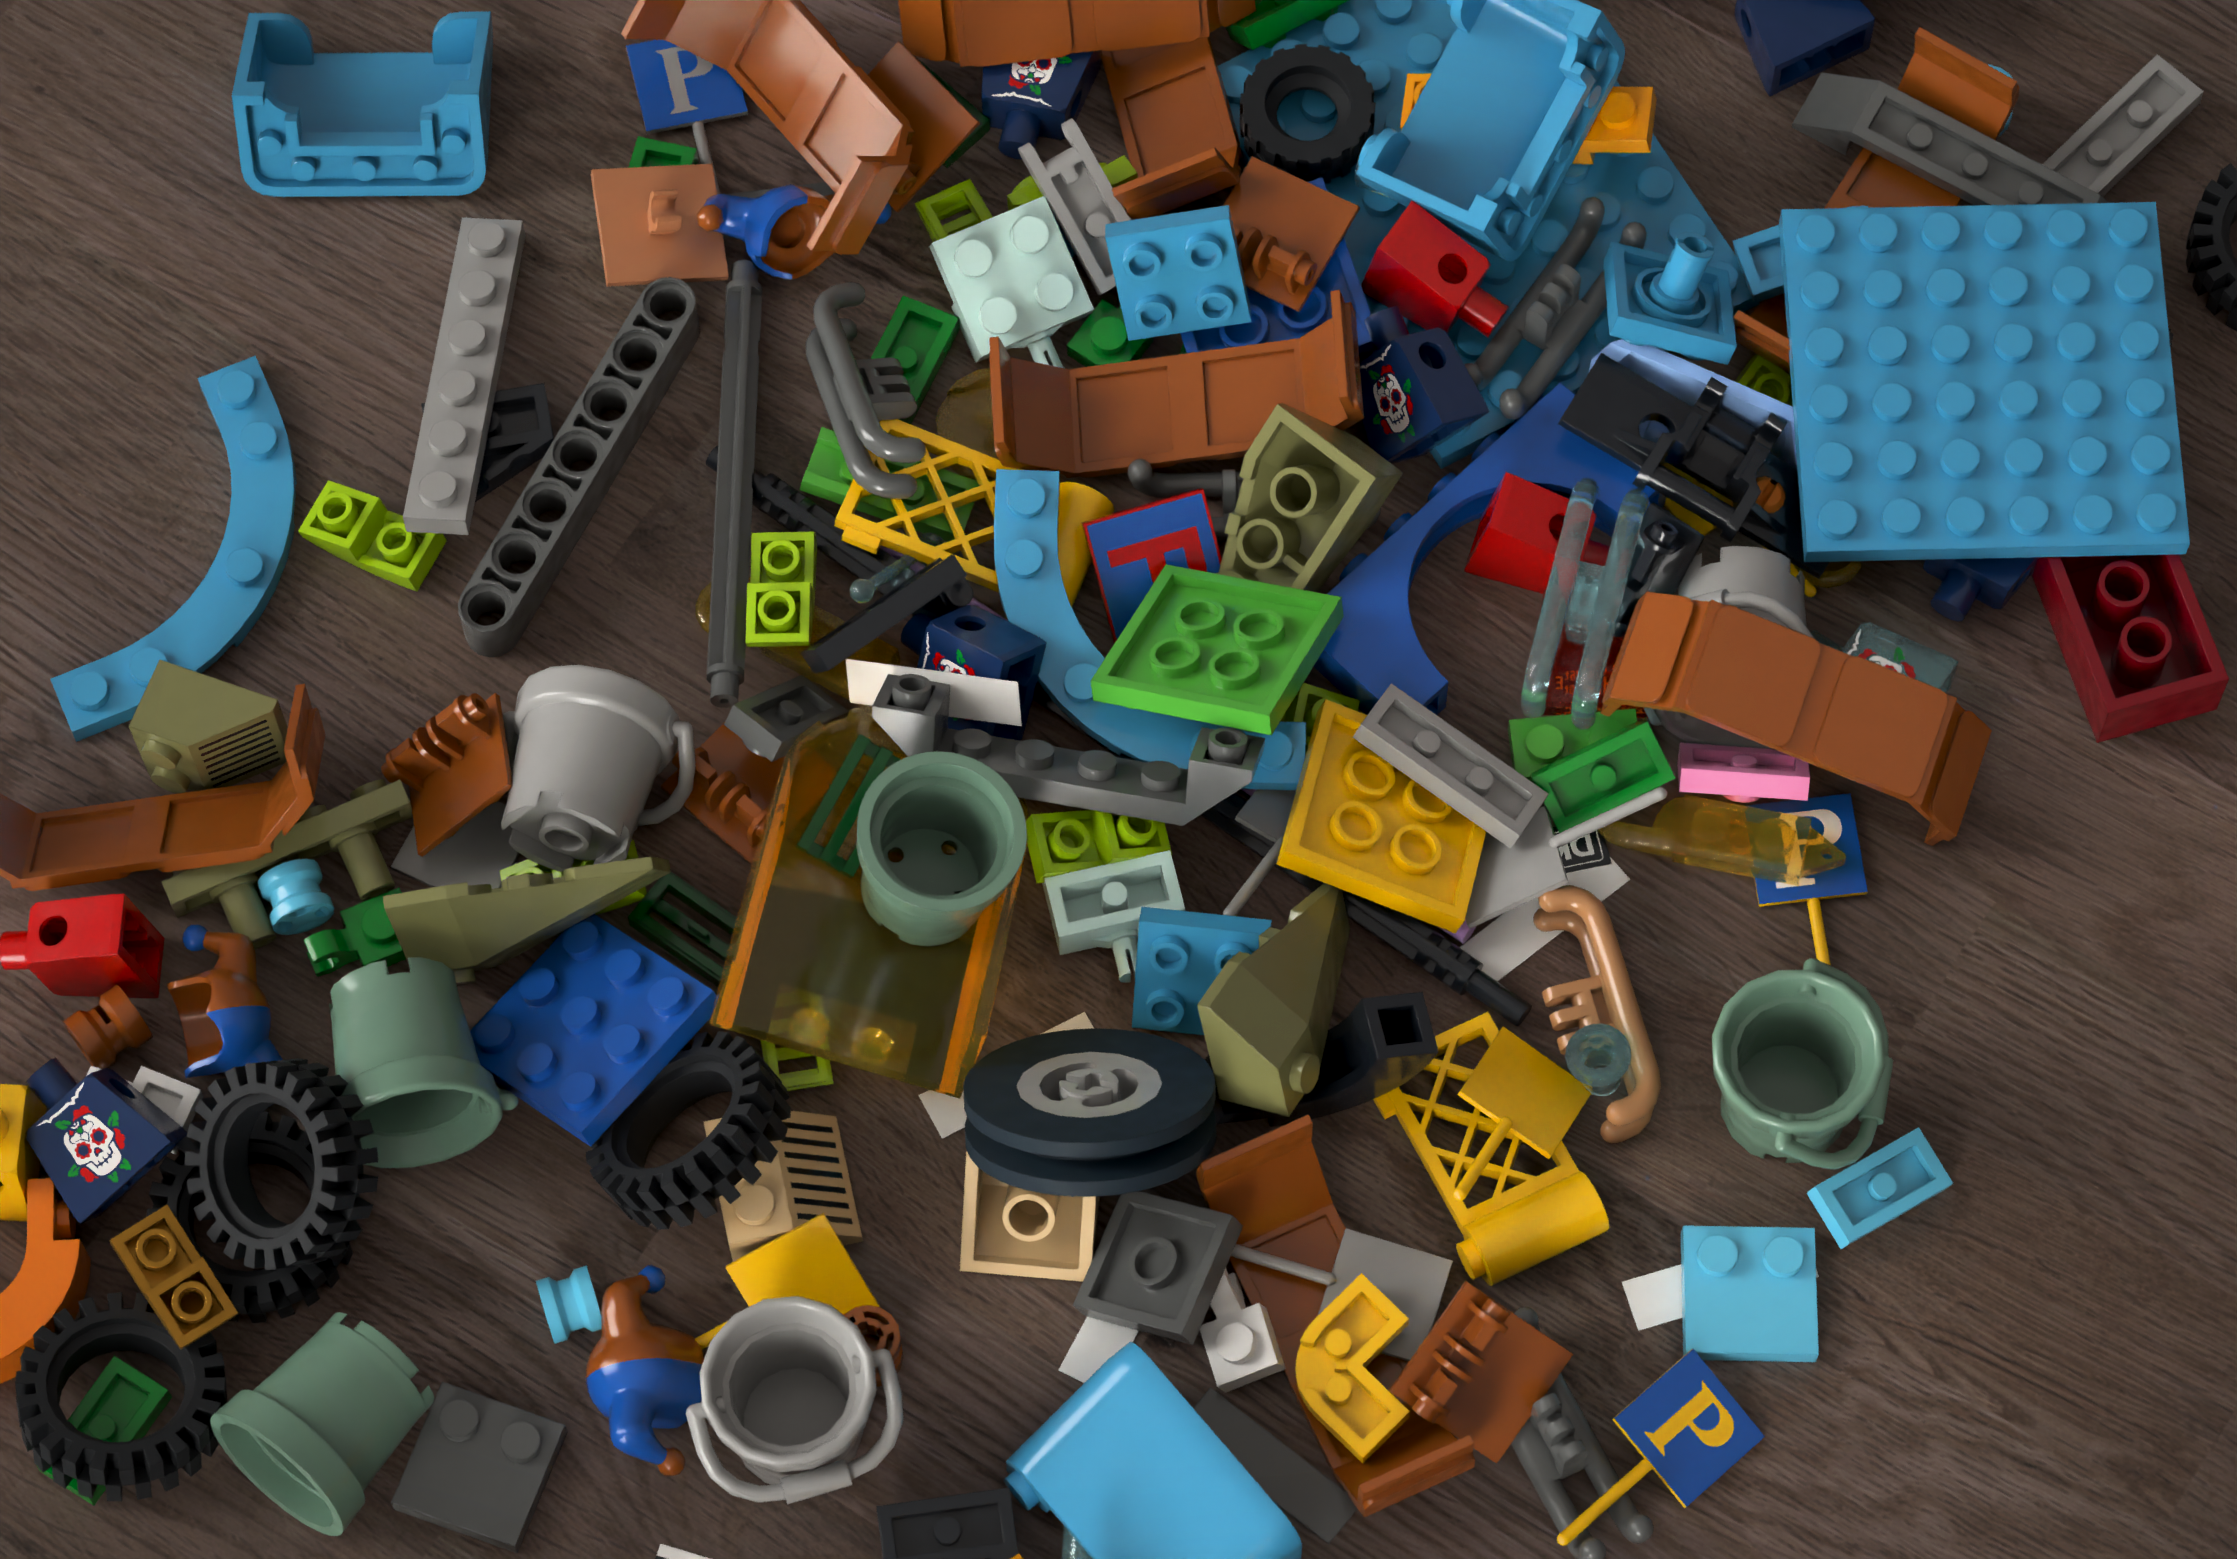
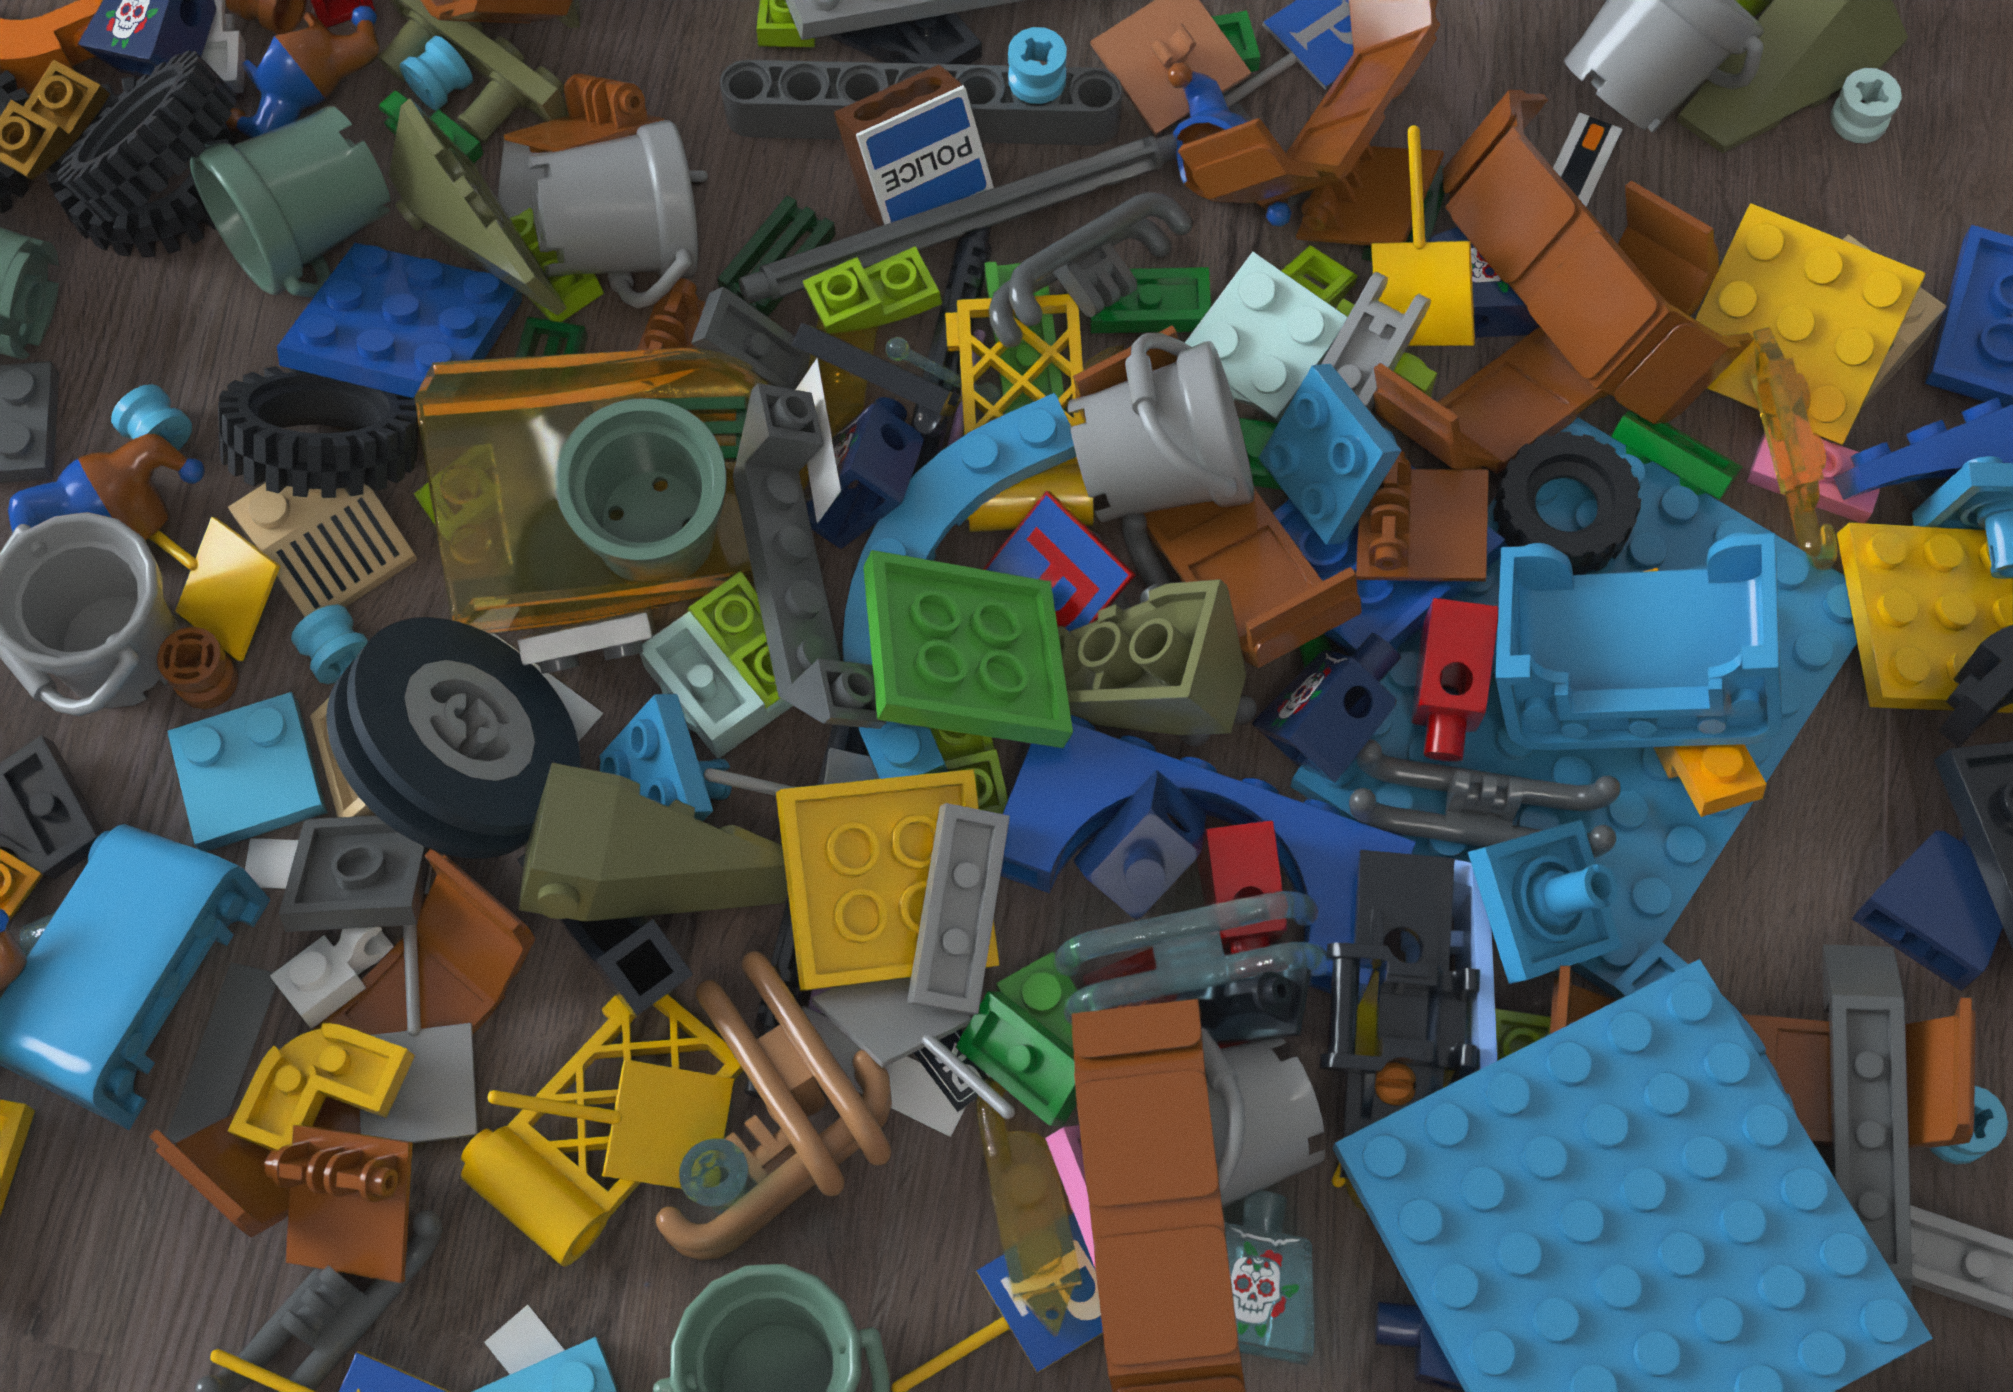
camera: 65 degrees right, 0 degrees up
(631, 350) = (1030, 78): none -> medium azure wheel
(652, 627) = (764, 238): none -> dark green tile
(653, 484) = (914, 146): none -> piece
(904, 1216) = (329, 641): none -> medium azure wheel
(992, 1345) = (246, 772): none -> medium azure plate
(1025, 112) = (1430, 269): none -> yellow piece
(1032, 972) = (616, 635): none -> plate
(1093, 392) = (1163, 434): none -> light grey piece
(1468, 594) = (1142, 849): none -> dark blue torso
(1523, 960) = (786, 1069): none -> medium nougat piece

